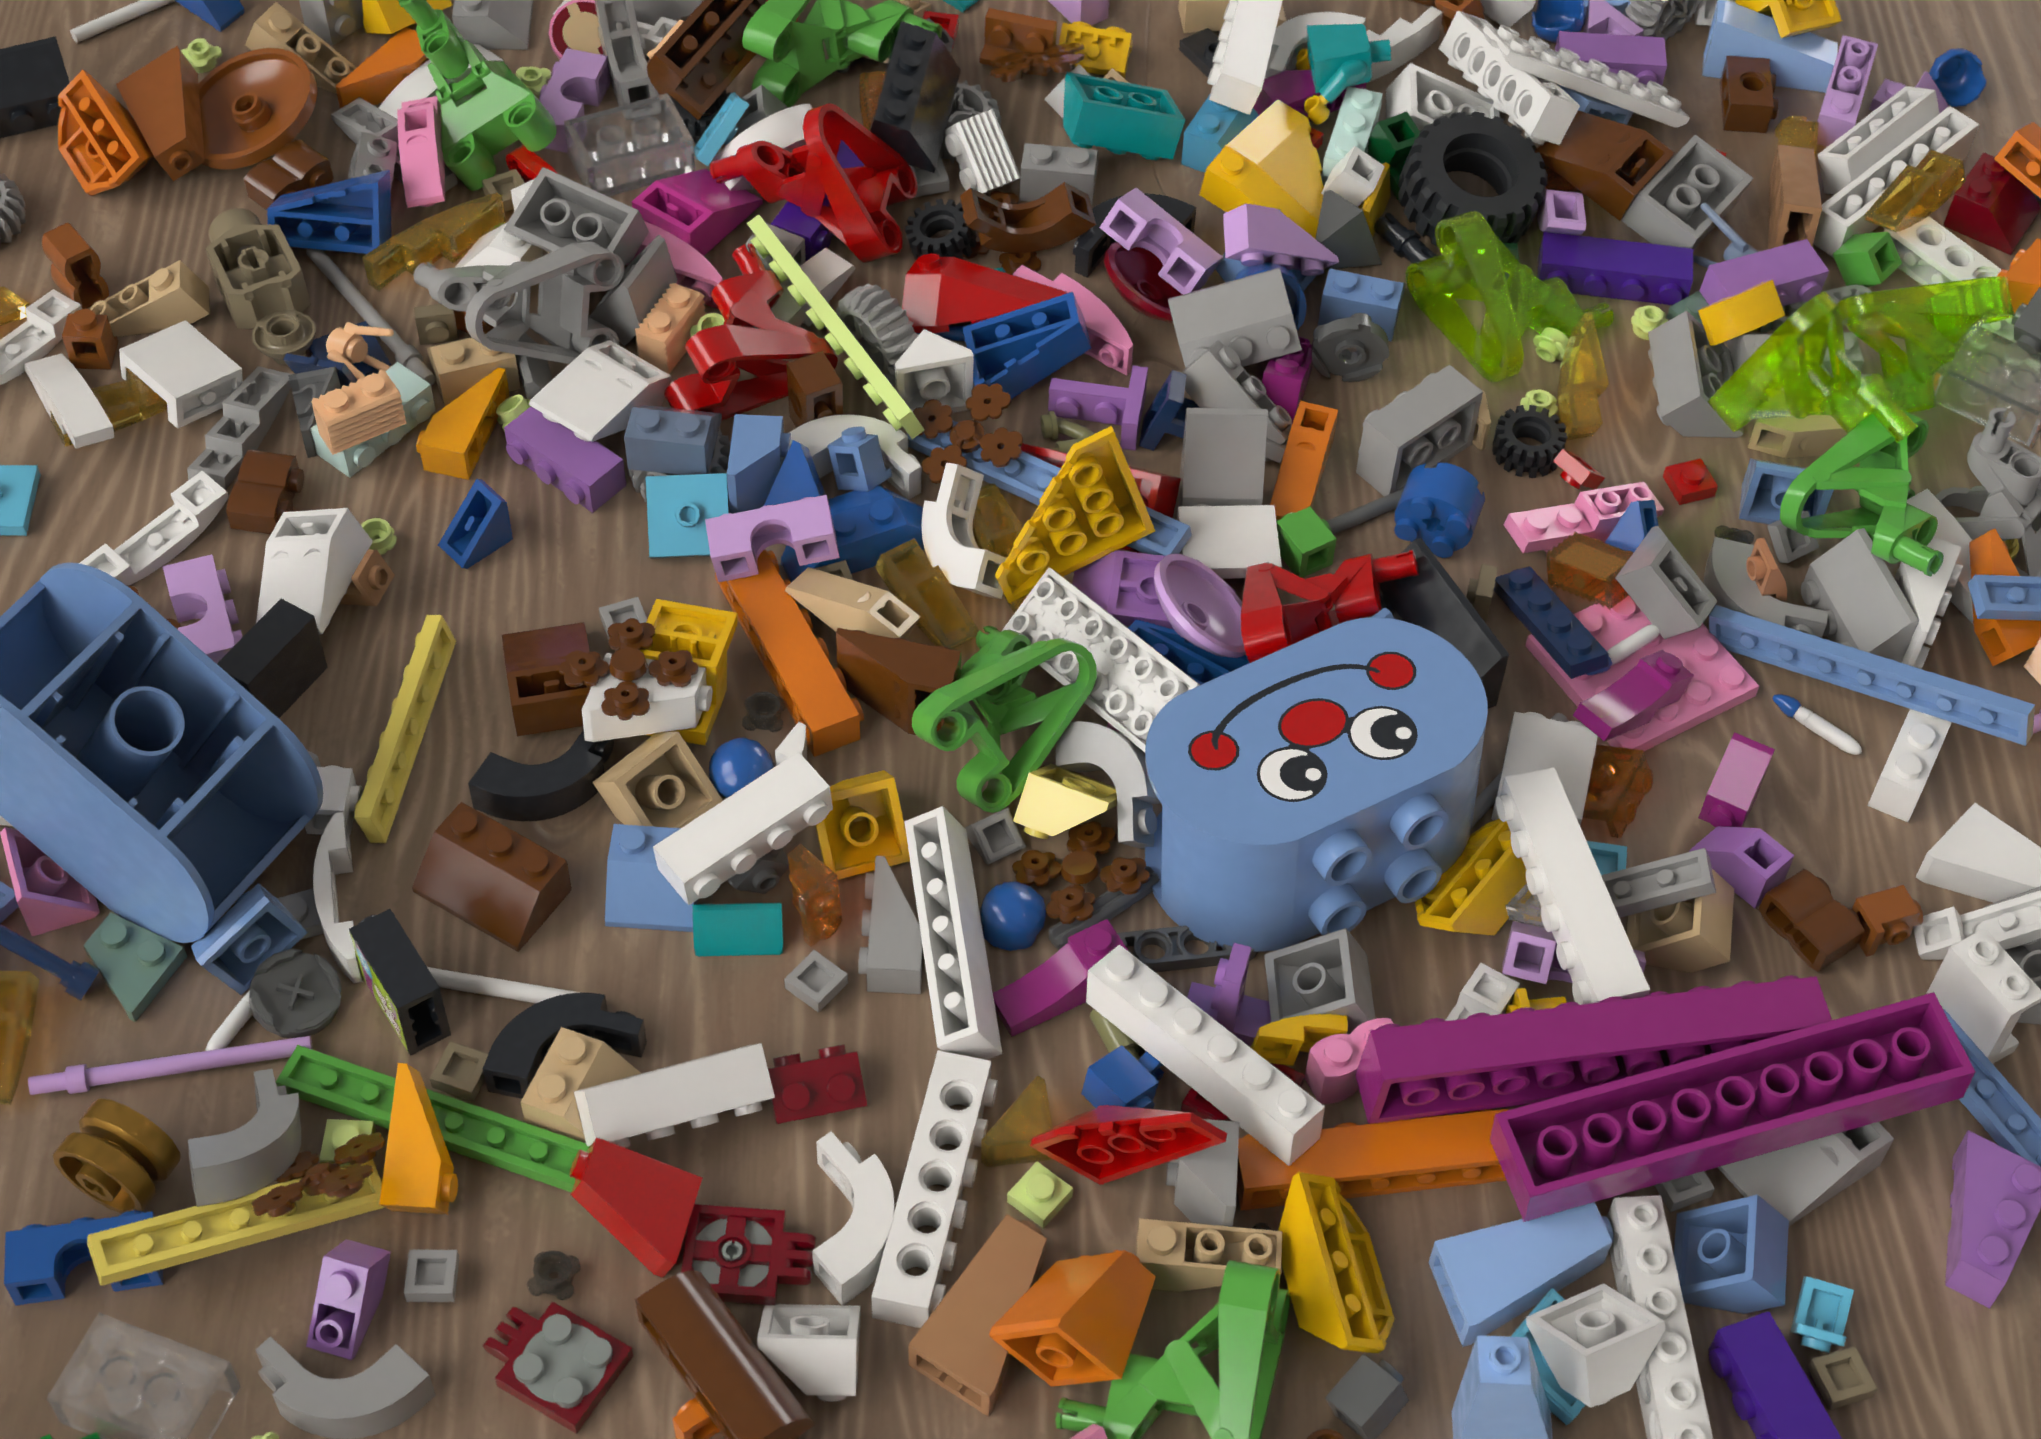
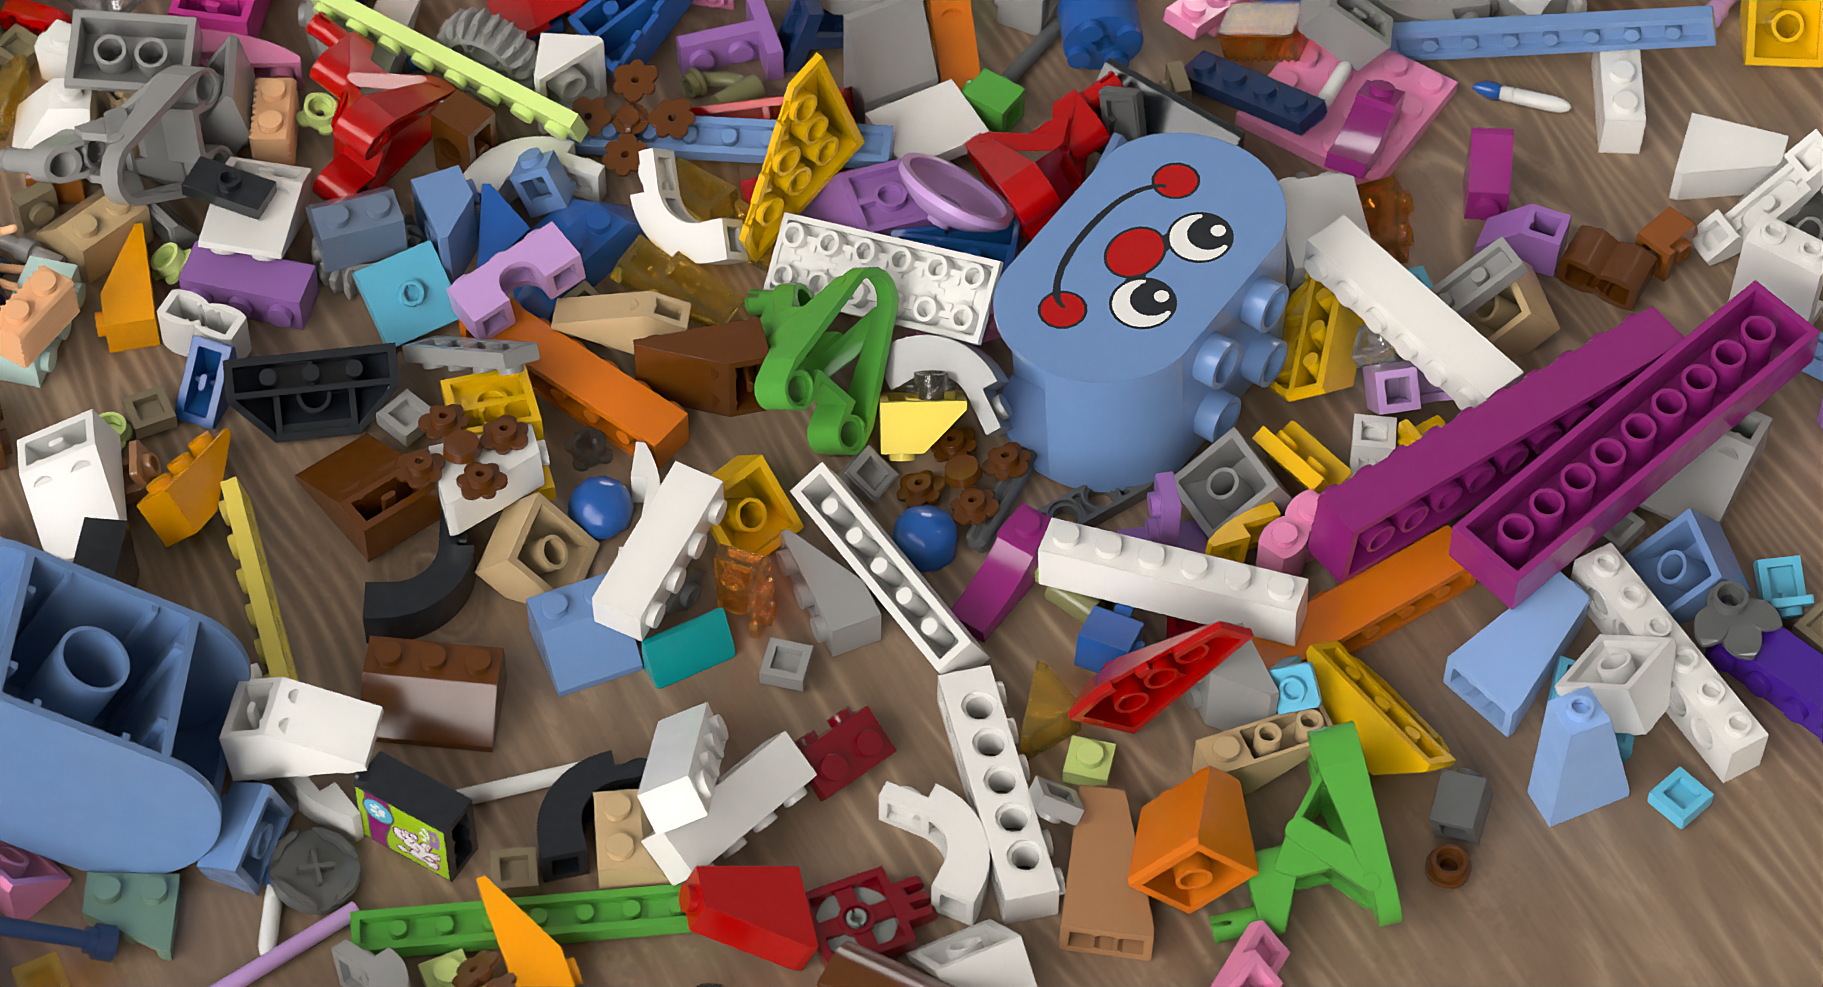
camera: 25 degrees left, 0 degrees up
(330, 859) = (296, 730): none -> white slope
(398, 616) = (190, 493): none -> light orange slope
(417, 532) = (149, 412): none -> dark tan plate
(490, 461) = (190, 314): none -> white brick
(554, 566) = (313, 390): none -> black wedge
(581, 364) = (229, 188): none -> black plate
(643, 1039) = (683, 767): none -> white brick
(700, 586) = (478, 353): none -> light grey plate
(972, 1220) = (1055, 801): none -> light grey plate
(1087, 774) = (931, 384): none -> clear smoke plate
(1259, 1204) = (1296, 685): none -> medium azure bracket
(1404, 592) = (1123, 111): none -> dark grey plate
(1404, 984) = (1303, 457): none -> yellow bracket
(1743, 1336) = (1735, 626): none -> dark grey plate

